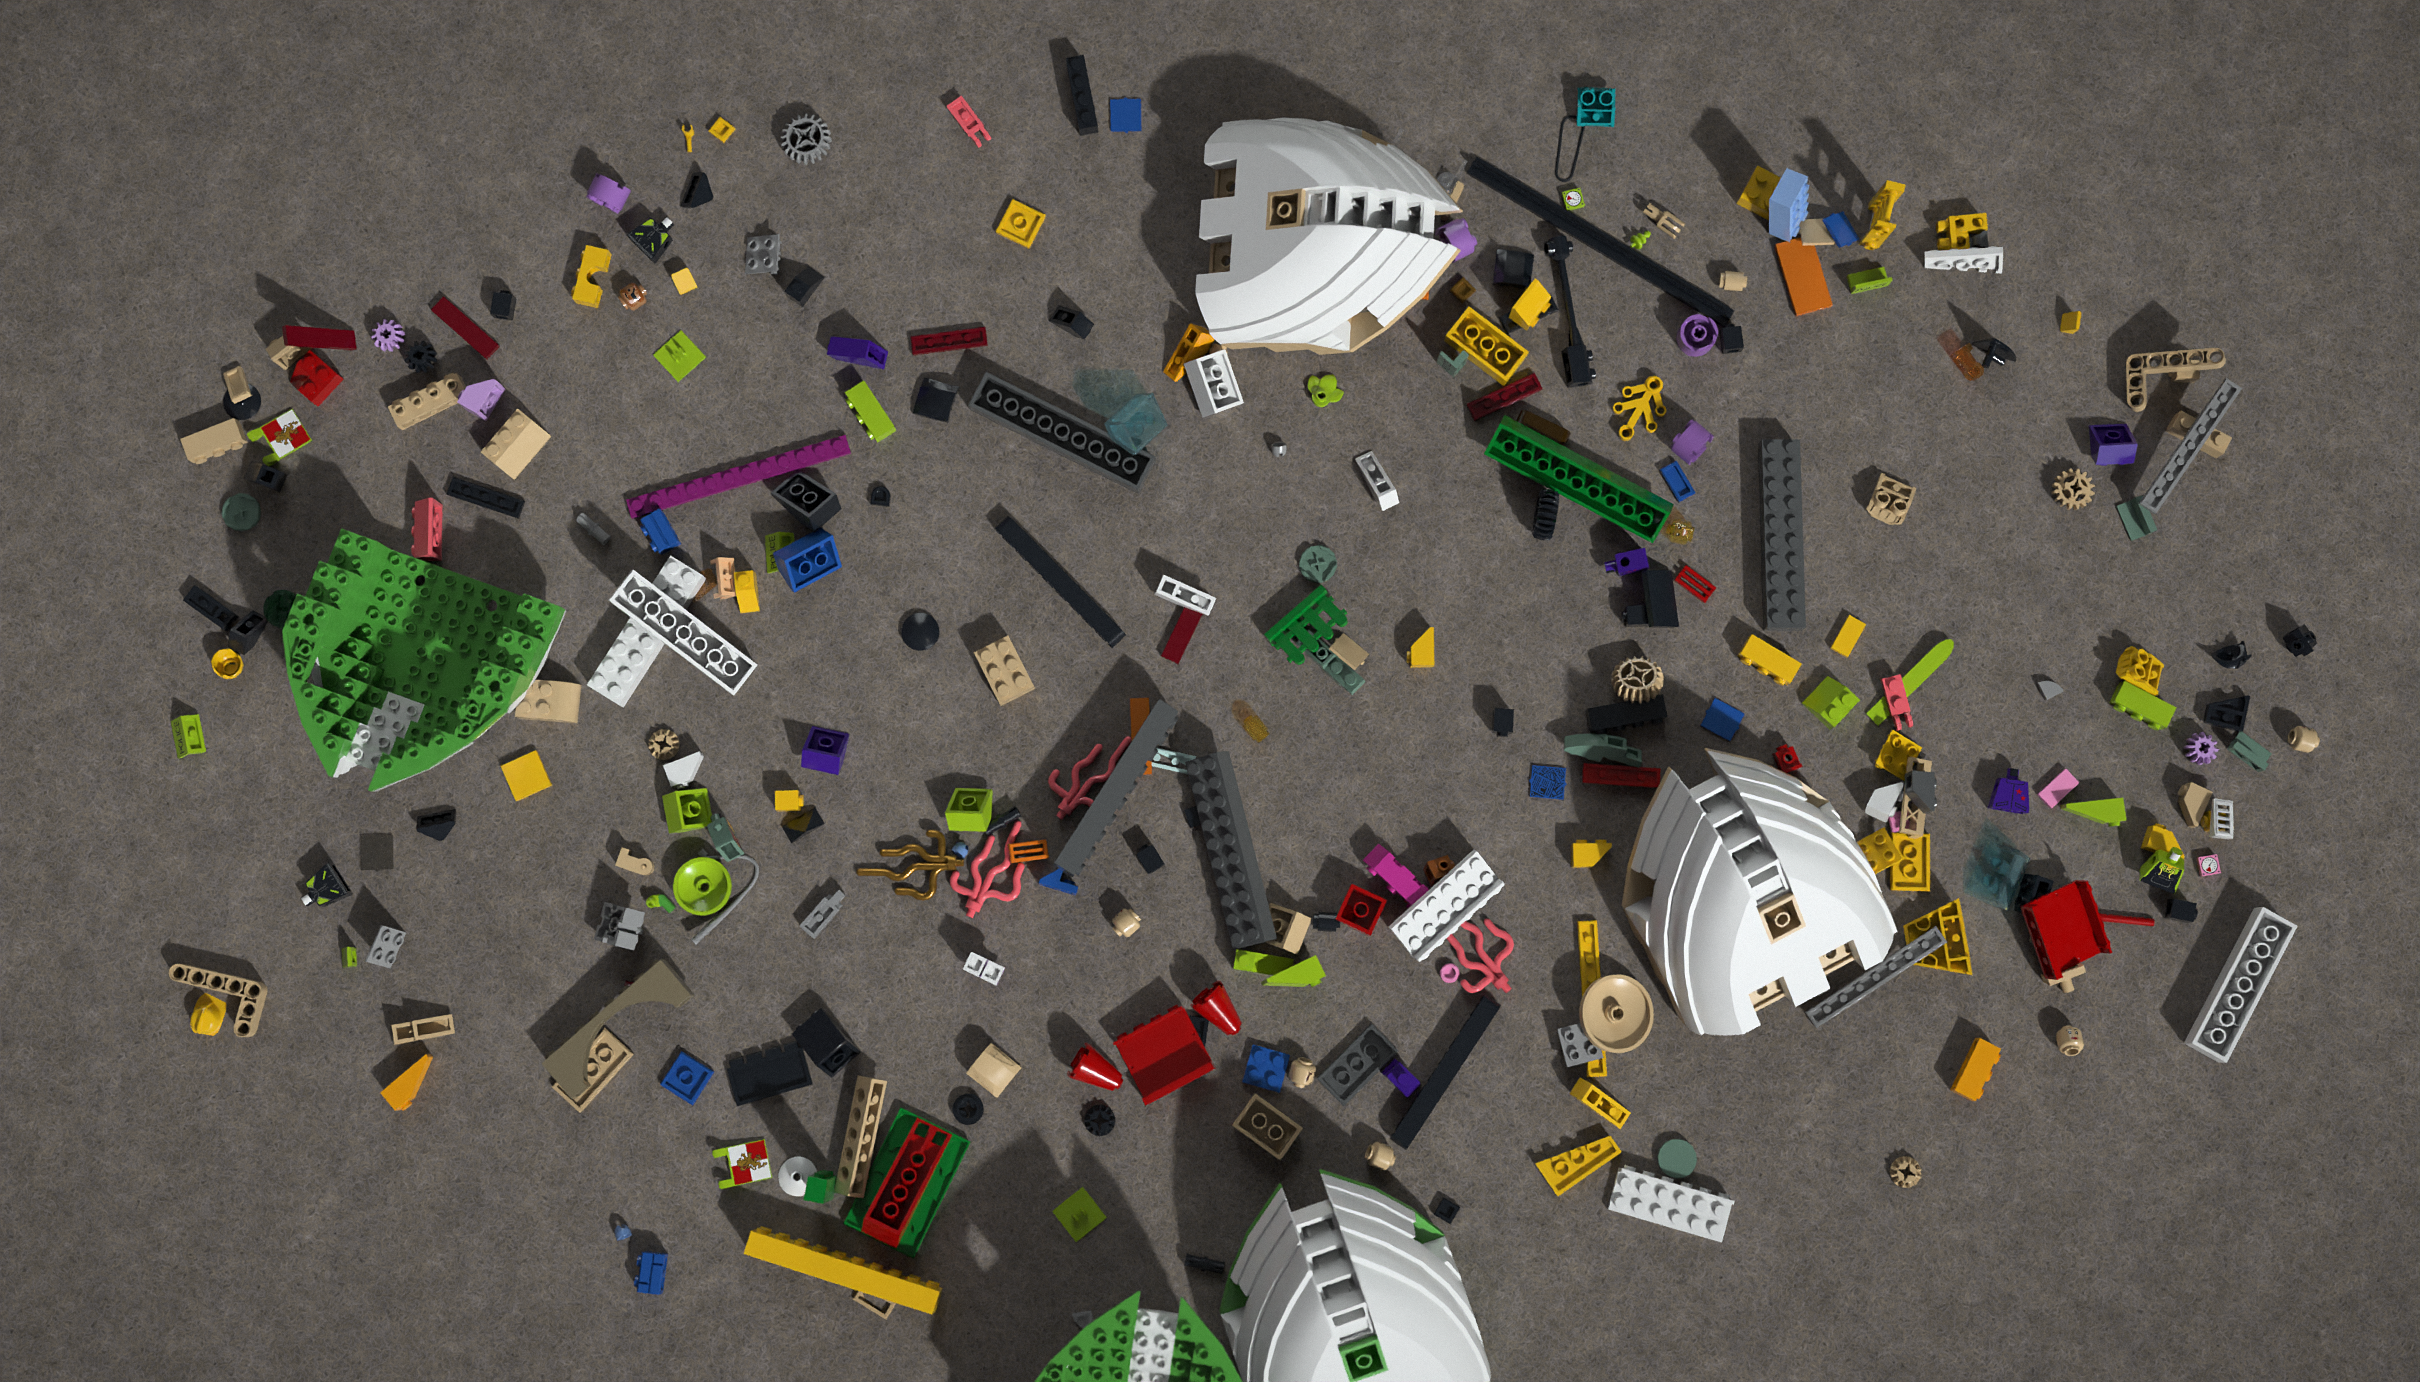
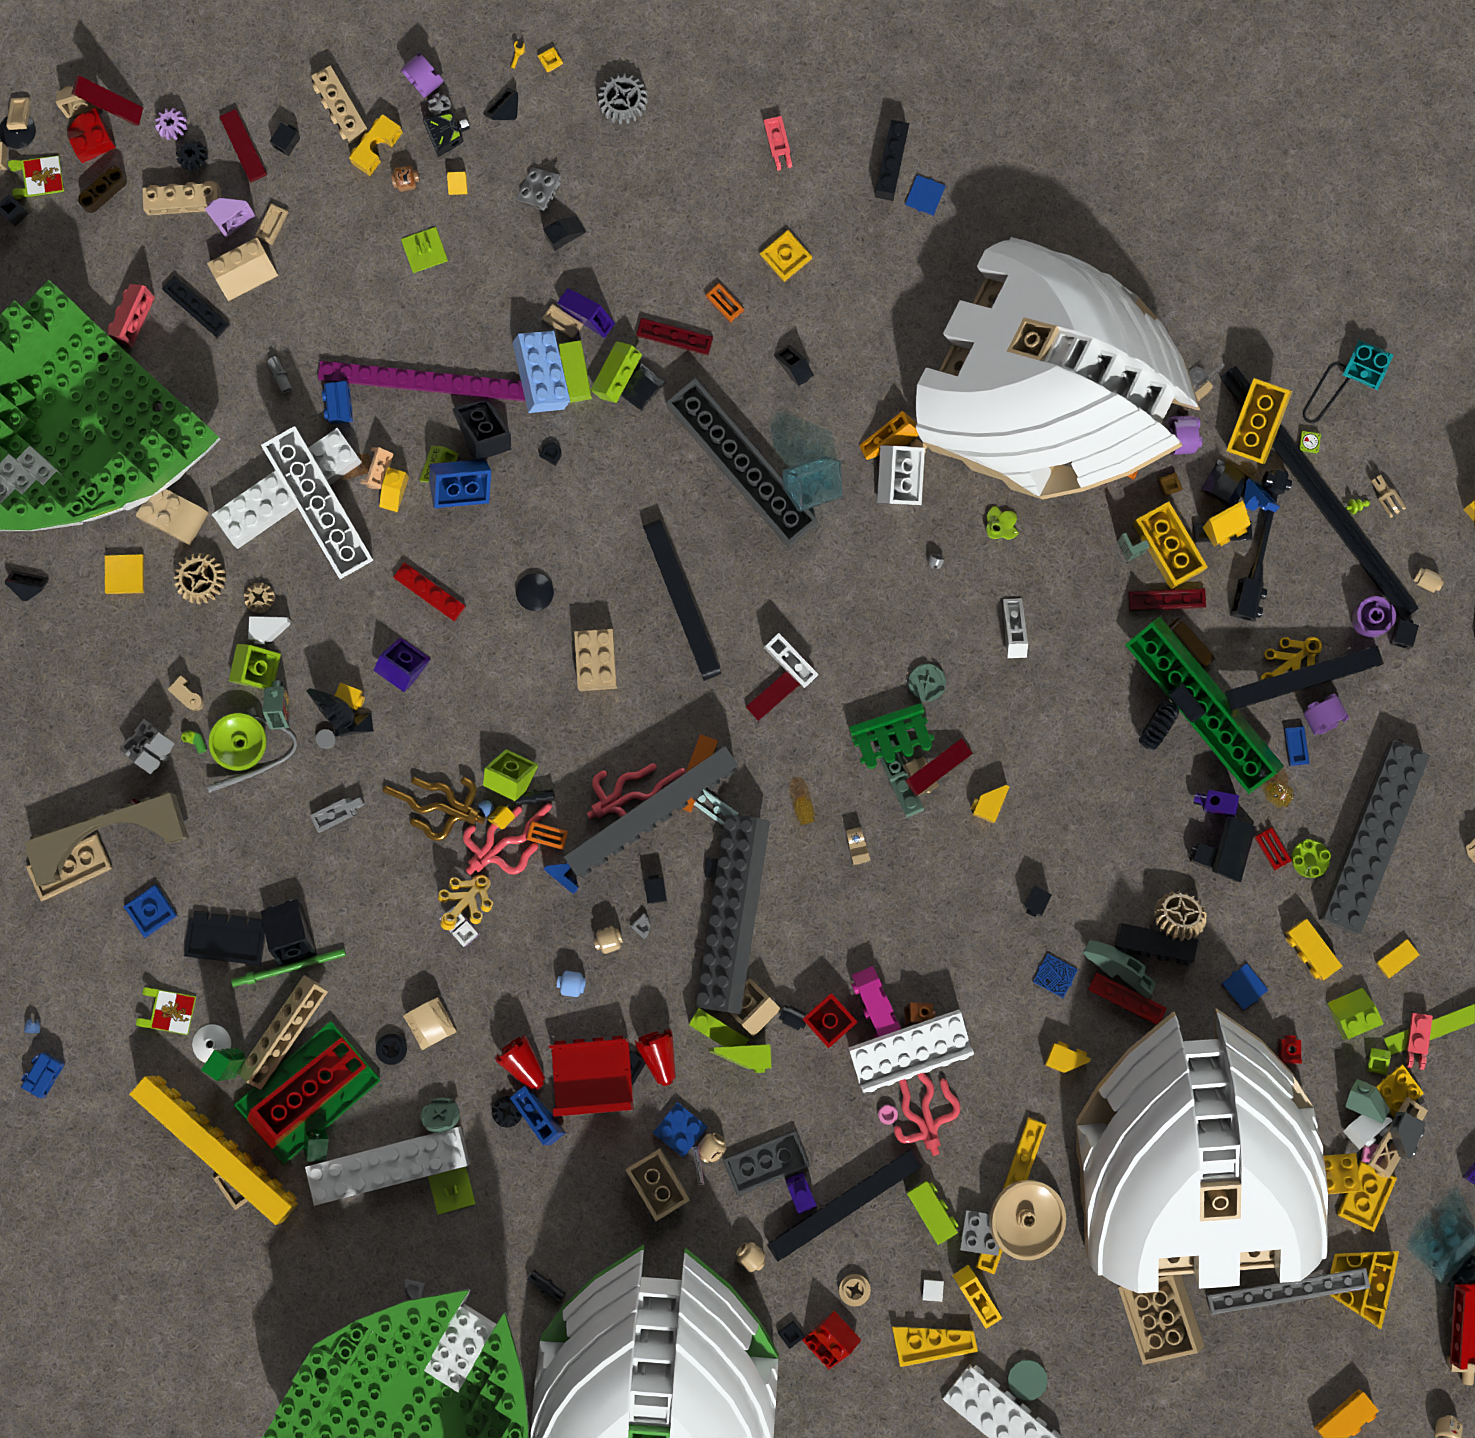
camera: 30 degrees right, 0 degrees up
(349, 414) = (105, 180): none -> dark brown beam
(524, 390) = (271, 224): none -> tan tile
(541, 252) = (340, 105): none -> tan brick
(617, 748) = (198, 585): none -> tan gear
(636, 214) = (439, 105): none -> light grey gear
(778, 817) = (332, 708): none -> black slope
(783, 849) = (325, 739): none -> light grey tile
(810, 1098) = (252, 977): none -> bright green bar
(821, 672) = (429, 592): none -> red plate
(838, 370) = (562, 321): none -> tan tile
(839, 424) = (541, 371): none -> light blue brick
(909, 396) = (616, 372): none -> lime brick
(937, 1227) = (316, 1145): none -> dark green brick
(978, 852) = (501, 817): none -> yellow slope
(984, 922) = (466, 898): none -> yellow plant
(996, 297) = (714, 291): none -> orange tile
(1010, 1217) = (387, 1165): none -> white brick
(1039, 1149) = (440, 1115): none -> sand green tile
(1109, 977) = (571, 983): none -> light blue head
(1130, 1112) = (538, 1116): none -> blue slope
(1151, 897) = (642, 926): none -> light grey tile
(1297, 1094) = (698, 1166): none -> white sticker
(1318, 740) = (857, 846): none -> tan leg
(1362, 636) = (938, 767): none -> dark red tile
(1485, 1199) = (832, 1340): none -> red slope
(1493, 1138) = (863, 1286): none -> tan gear
(1519, 199) = (1259, 421): none -> yellow brick
(1527, 1043) = (933, 1211): none -> lime brick
(1547, 268) = (1257, 496): none -> blue slope
(1557, 1114) = (932, 1290): none -> white tile
(1562, 483) = (1186, 702): none -> black tile
(1658, 417) = (1304, 678): none -> black beam
(1732, 578) = (1310, 858): none -> lime dish
(1775, 1051) = (1163, 1321): none -> tan slope
(1870, 735) = (1379, 1061): none -> lime slope
(1875, 776) = (1367, 1101): none -> sand green slope

